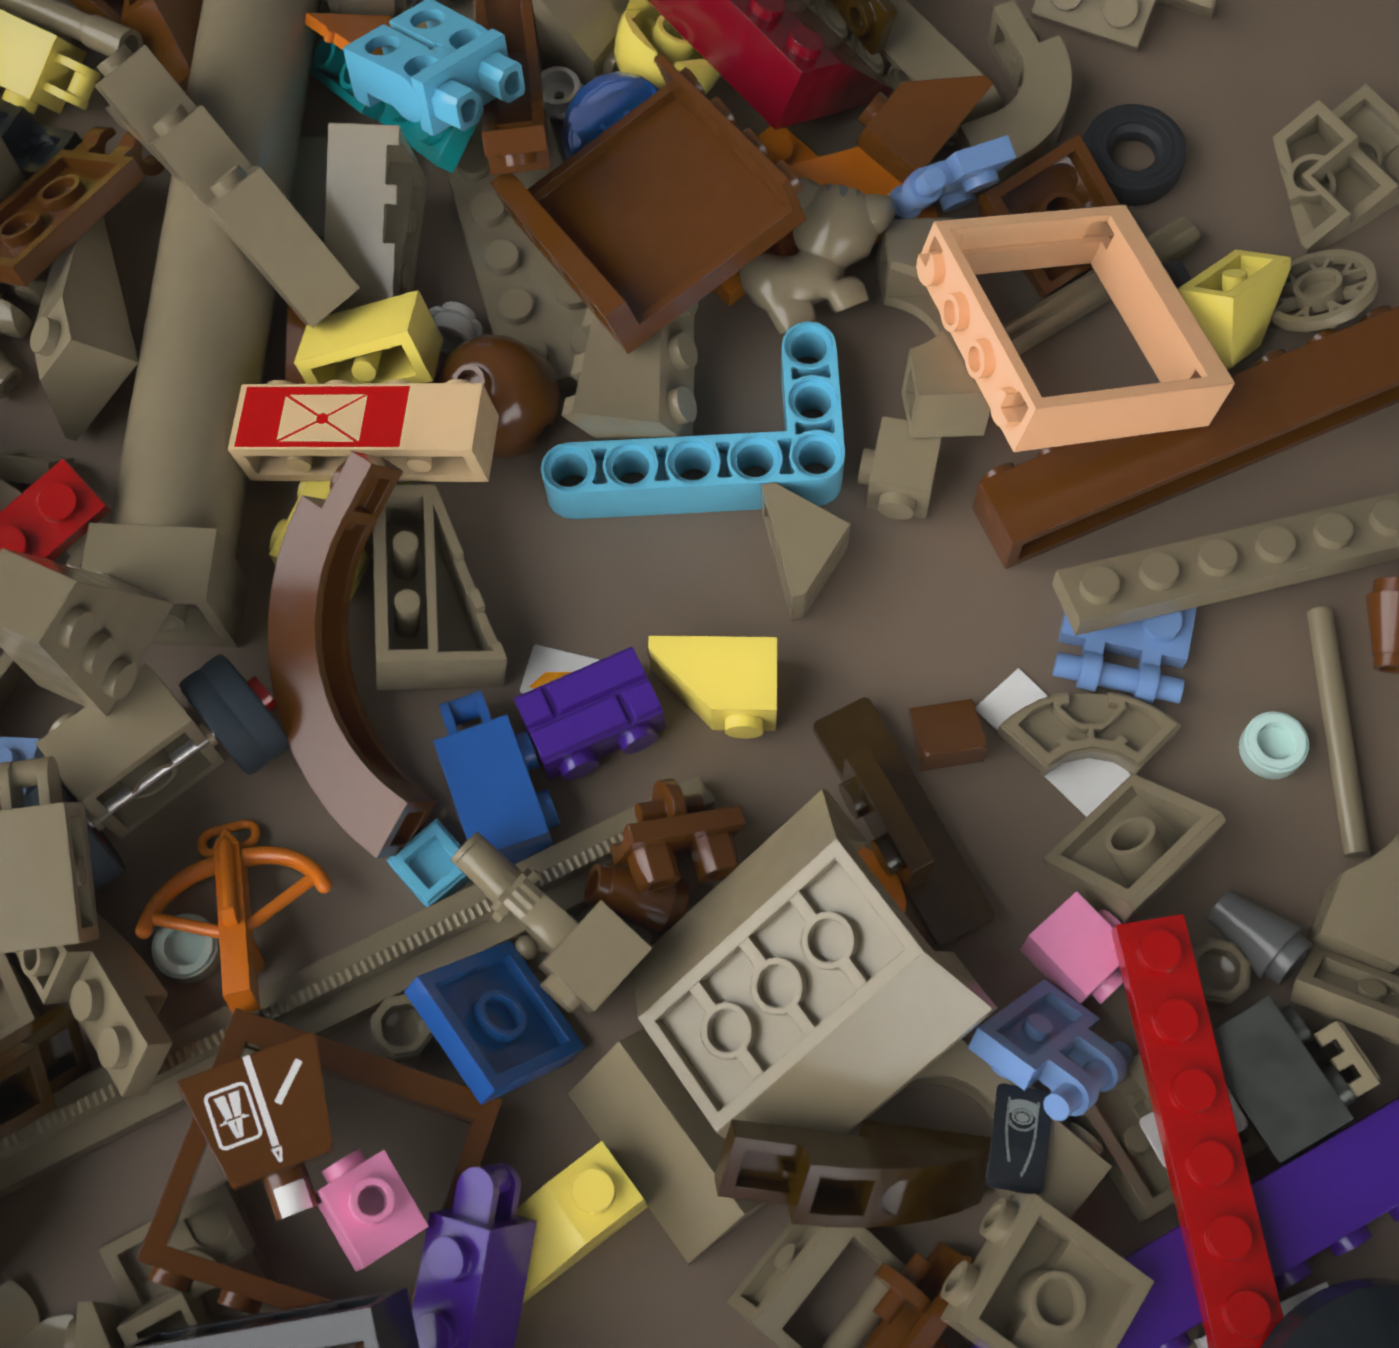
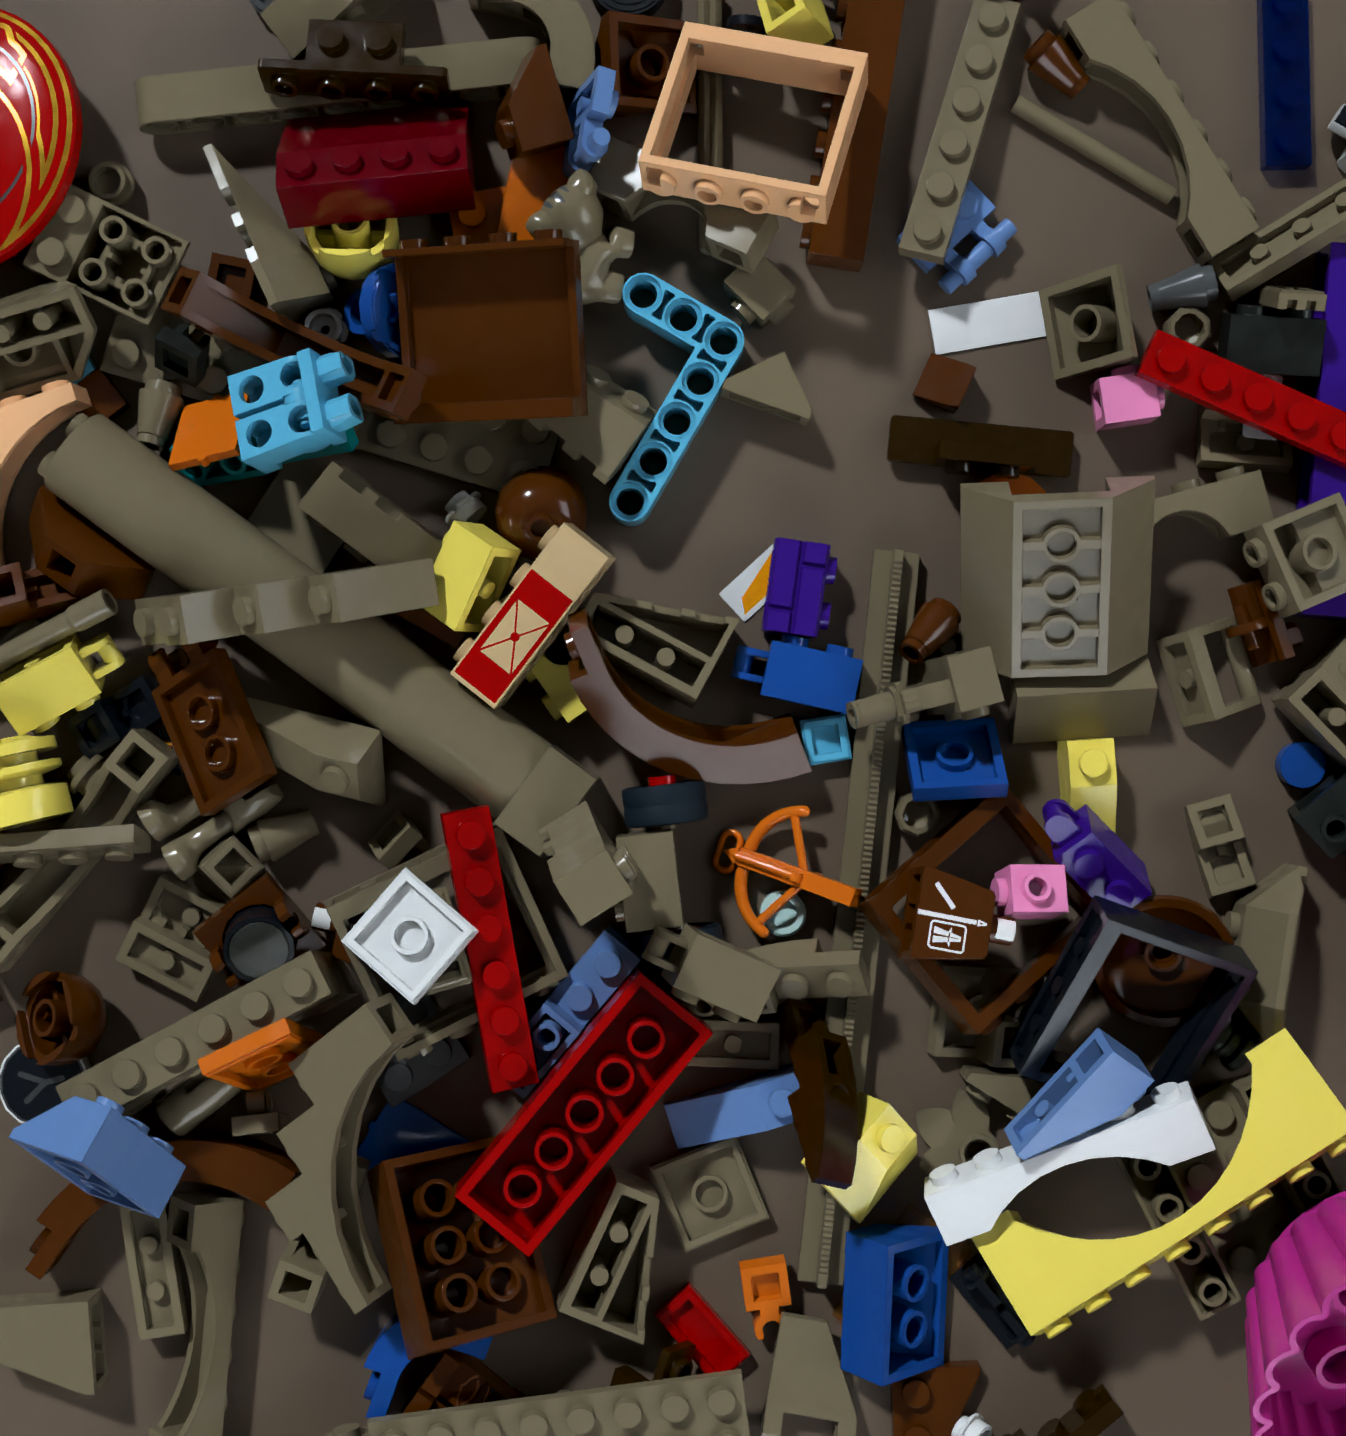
camera: 65 degrees left, 20 degrees up
(675, 827) = (929, 570): reddish brown hips -> none
(721, 679) = (829, 494): light yellow slope -> none
(854, 1181) = (1184, 608): dark brown slope -> none
(1019, 1140) = (1213, 509): black sticker -> none
(1032, 1043) = (1160, 452): medium blue plate -> none
(1088, 726) = (995, 294): dark tan tile -> none
(1273, 745) = (1077, 194): light aqua tile -> none

